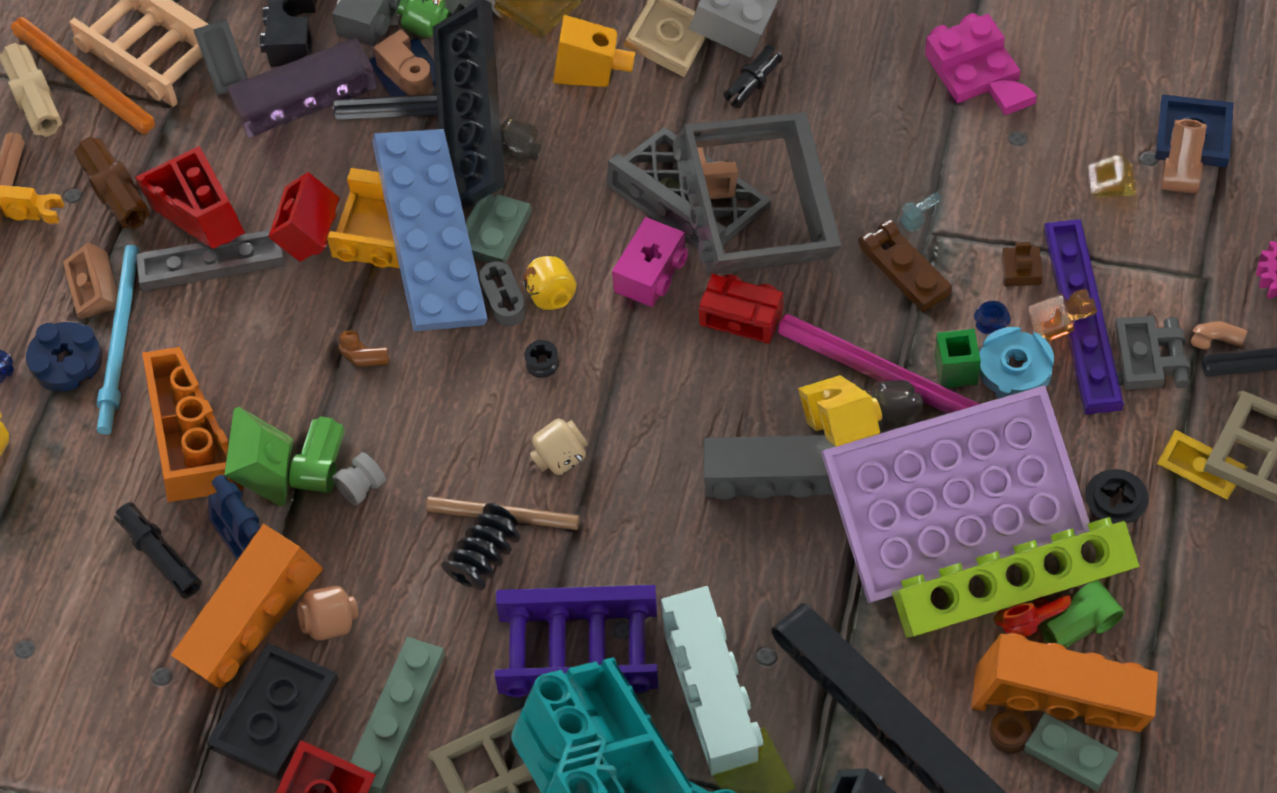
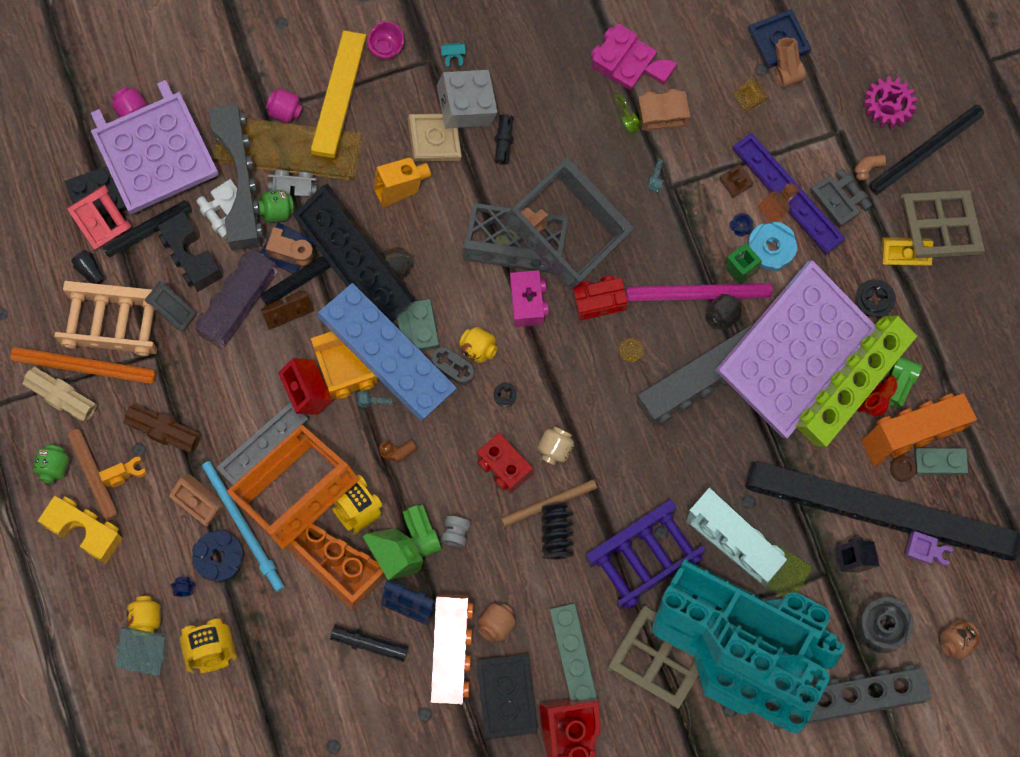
camera: 35 degrees left, 15 degrees up
(192, 198) = (228, 412): red wedge -> none
(199, 331) = (308, 507): none -> orange window
(260, 376) = (357, 507): none -> yellow brick
(349, 131) = (296, 306): none -> reddish brown hinge
(368, 278) = (365, 400): none -> clear light blue hand
(478, 433) = (504, 463): none -> red brick
(740, 389) = (631, 350): none -> clear yellow plate
(840, 410) = (714, 337): yellow arch -> none
(905, 266) = (671, 217): reddish brown plate -> none
(927, 129) = (630, 120): none -> clear neon green plate
(980, 138) = (663, 110): none -> nougat brick

